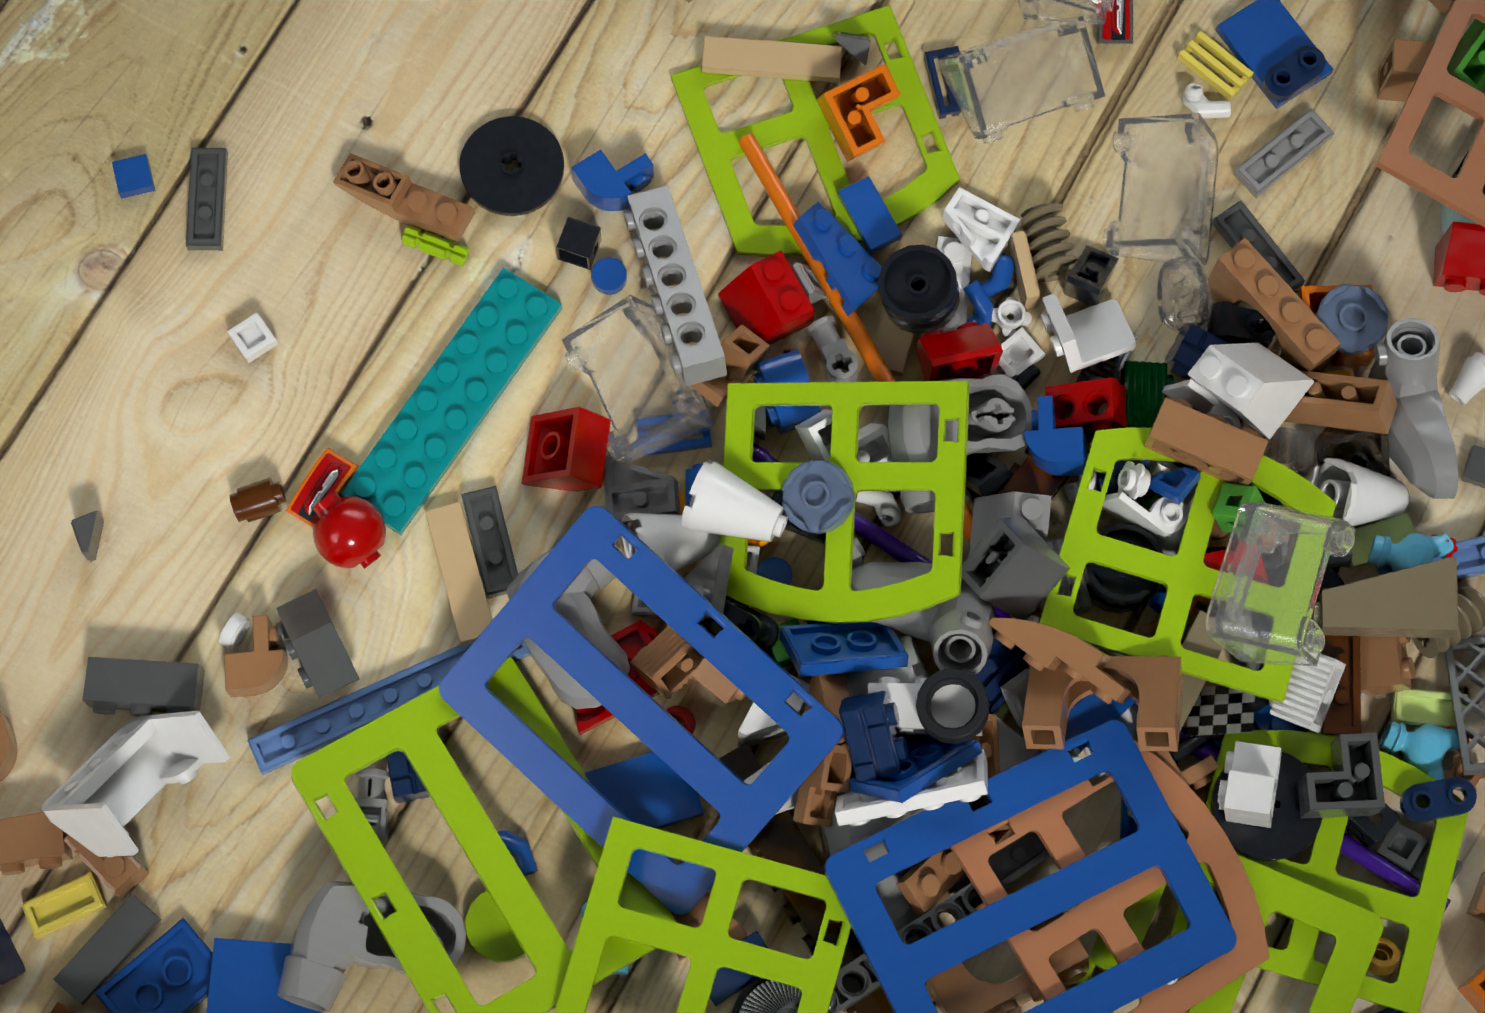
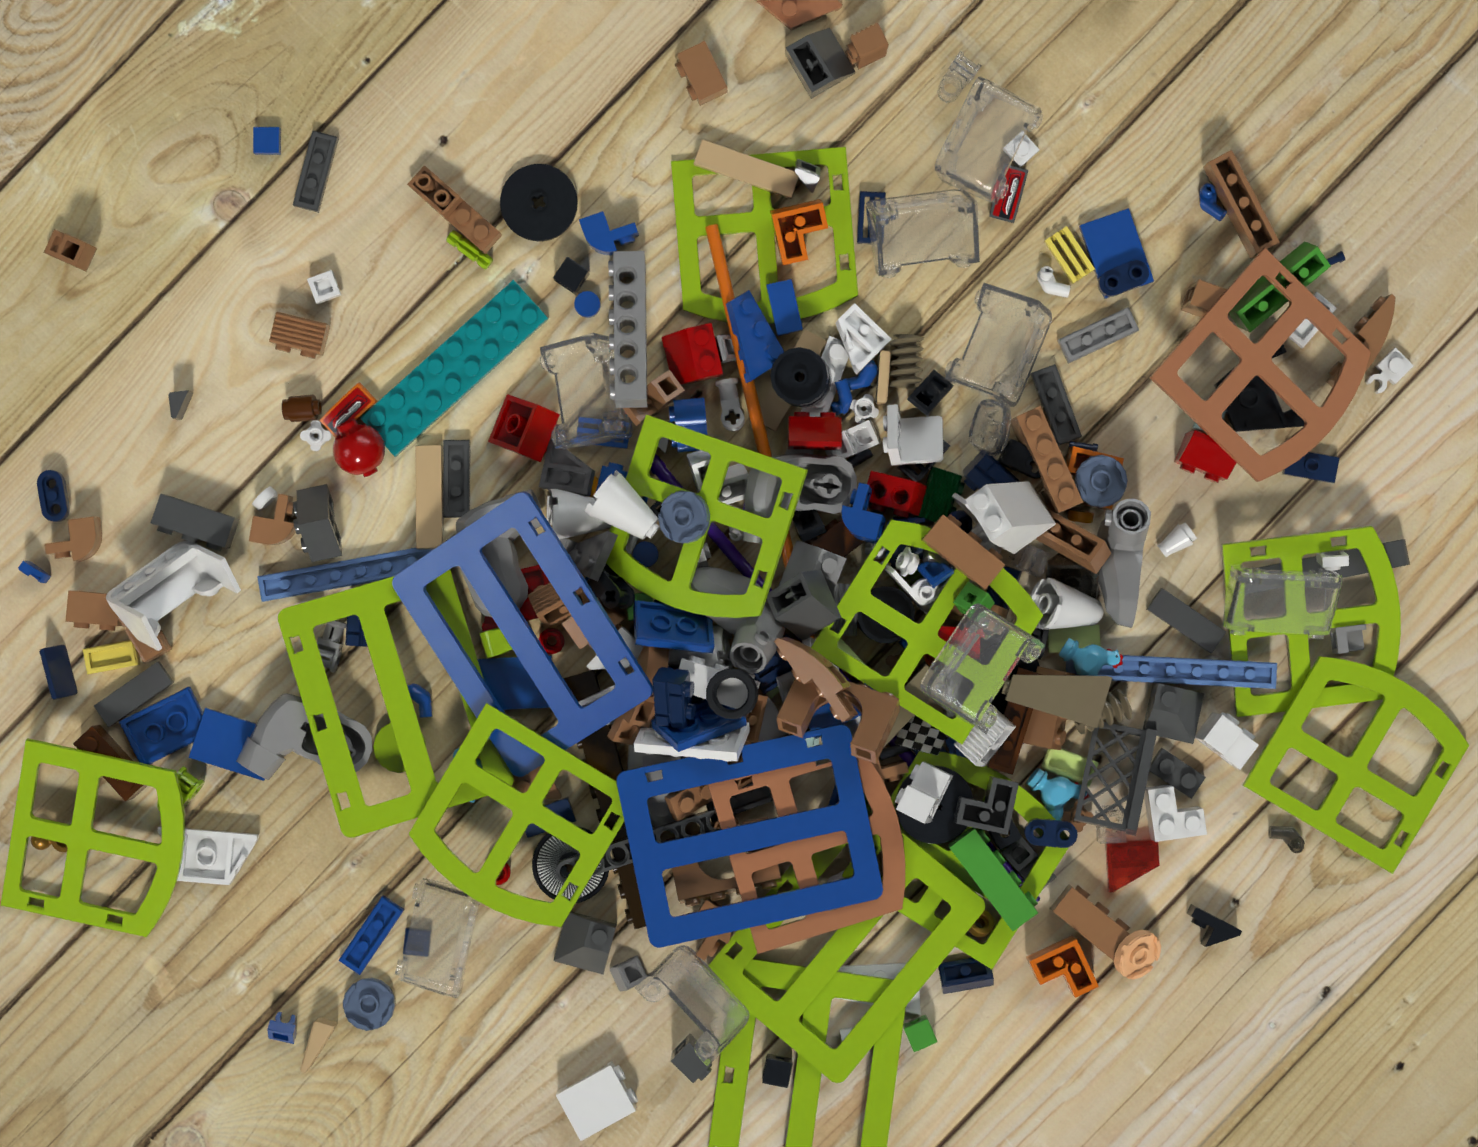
camera: 15 degrees right, 15 degrees up
(233, 405) = (299, 334): none -> medium nougat brick
(291, 540) = (308, 435): none -> white plate
(605, 741) = (494, 642): none -> lime piece
(1382, 881) = (993, 878): none -> bright green brick

